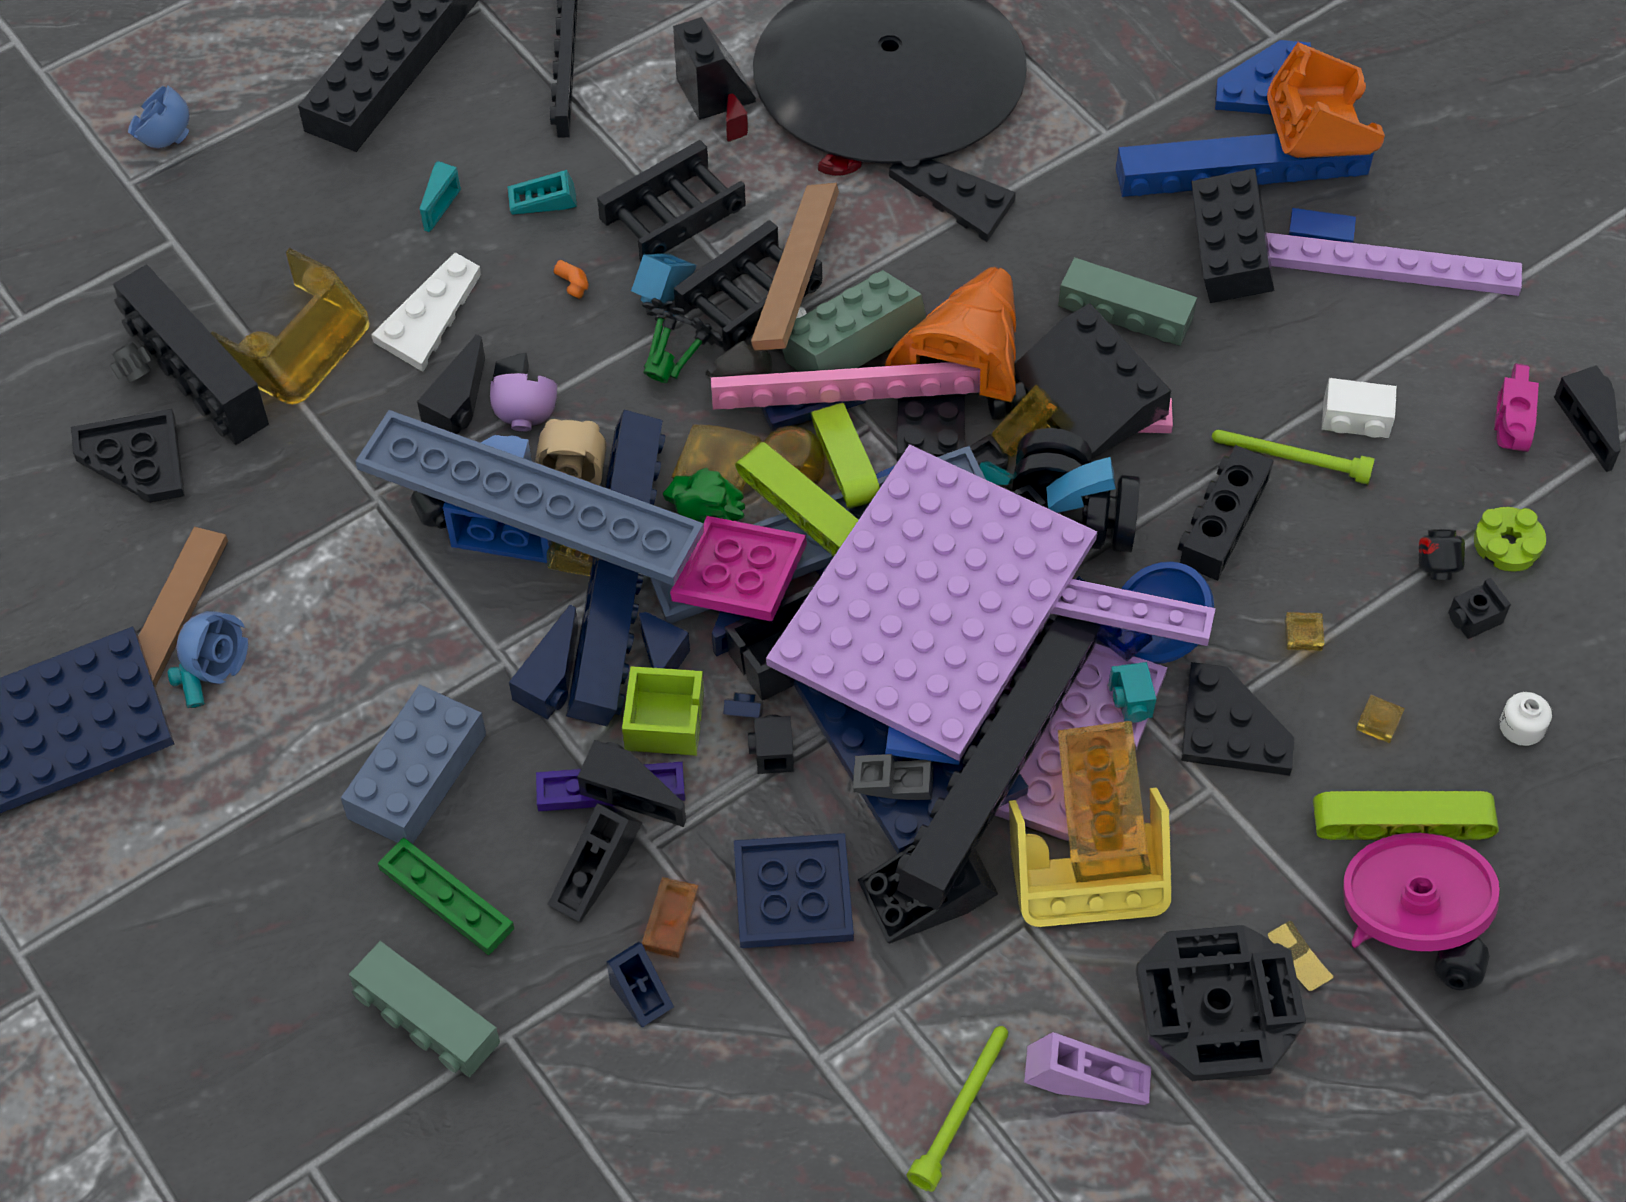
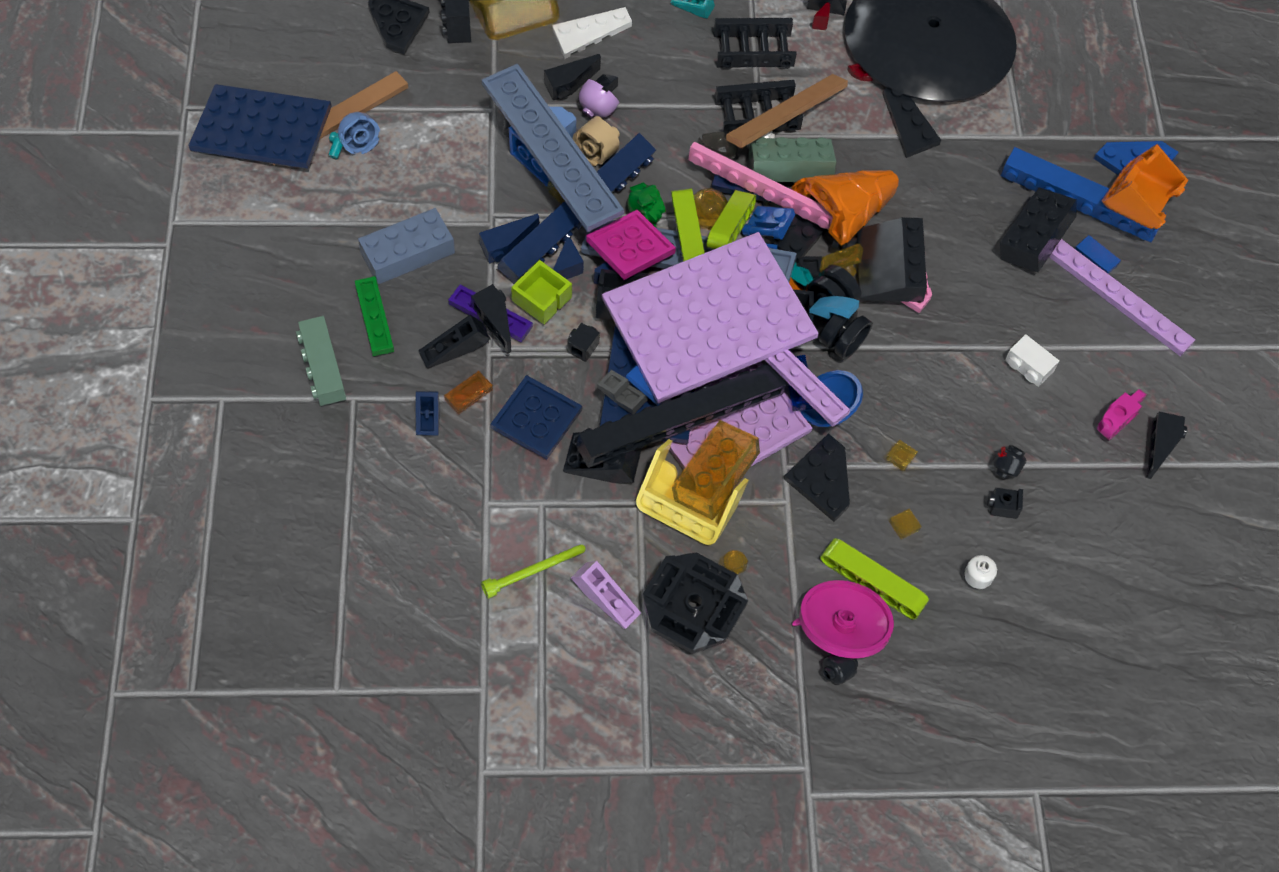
camera: 30 degrees right, 5 degrees up
(574, 275) = (675, 53): orange arm -> none
(659, 276) = (715, 75): dark azure slope -> none
(660, 362) = (681, 122): plant -> none
(717, 450) = (671, 179): clear yellow slope -> none
(743, 705) = (583, 314): dark blue plate -> none
(889, 421) = (769, 221): none -> blue plate
(1128, 301) = (952, 231): sand green brick -> none
(1133, 691) = (780, 427): teal brick -> none
(1218, 910) = (735, 561): none -> clear yellow brick
(1236, 492) = (886, 387): black brick -> none
(1307, 965) = (761, 610): clear yellow sticker -> none
(1357, 468) = (1005, 392): lime piece -> none
(1512, 521) = (1058, 466): lime plate -> none

